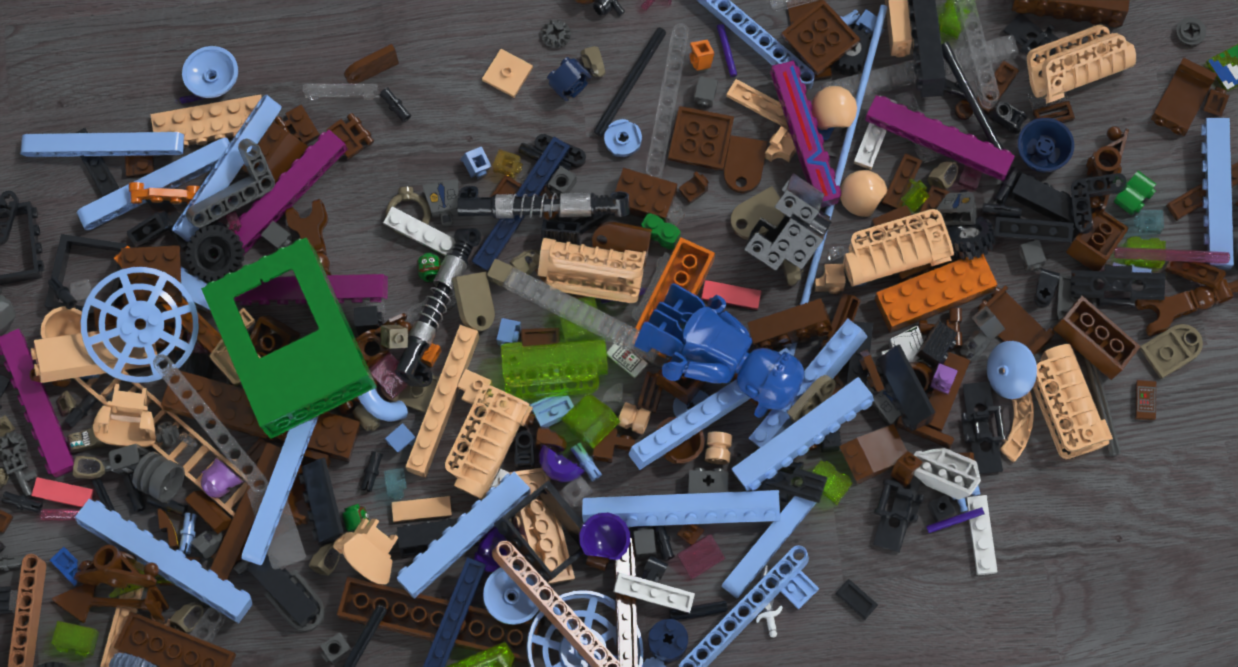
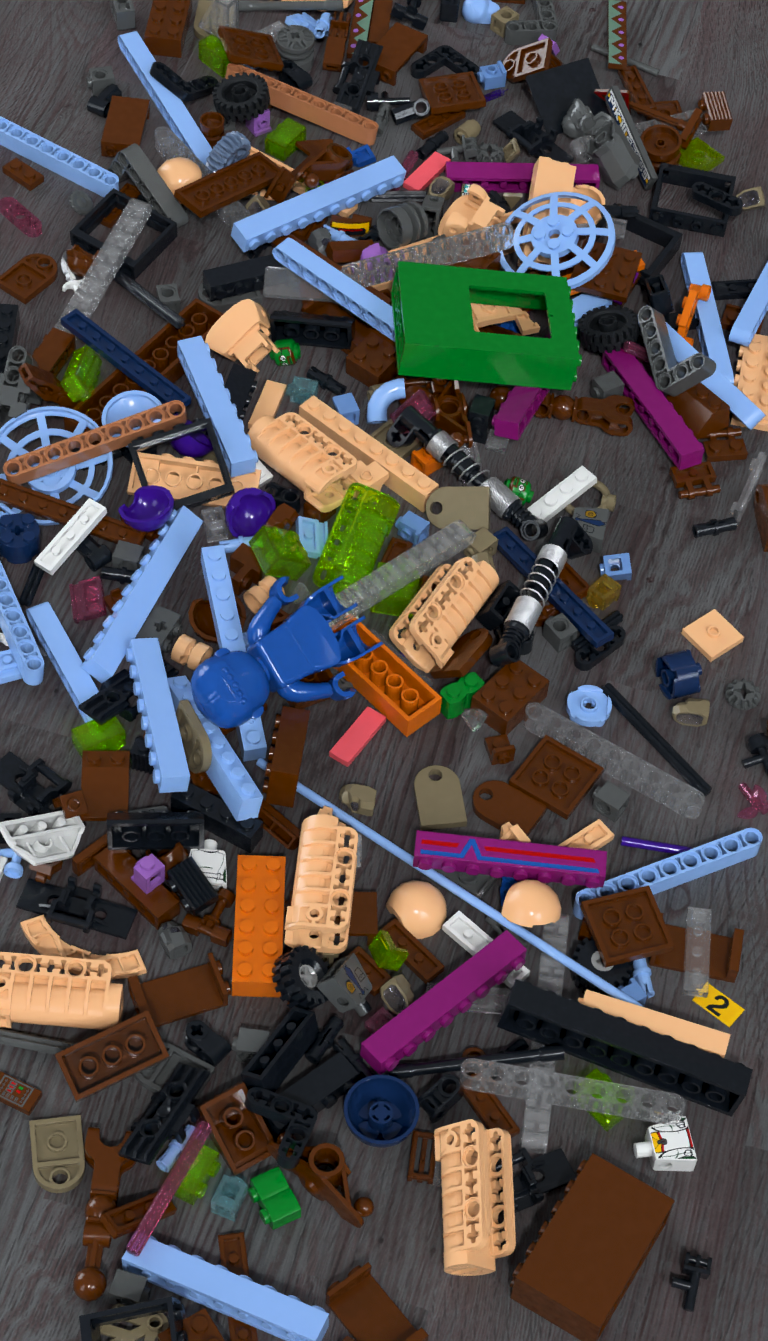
camera: 105 degrees right, 20 degrees down
(394, 336) = (448, 417): dark tan brick -> none
(701, 54) = (657, 808): orange brick -> none
(798, 231) = (399, 788): black piece -> none
(873, 378) = (201, 802): reddish brown plate -> none
(988, 323) = (191, 955): dark grey brick -> none
(1018, 366) = (123, 948): light blue dish -> none

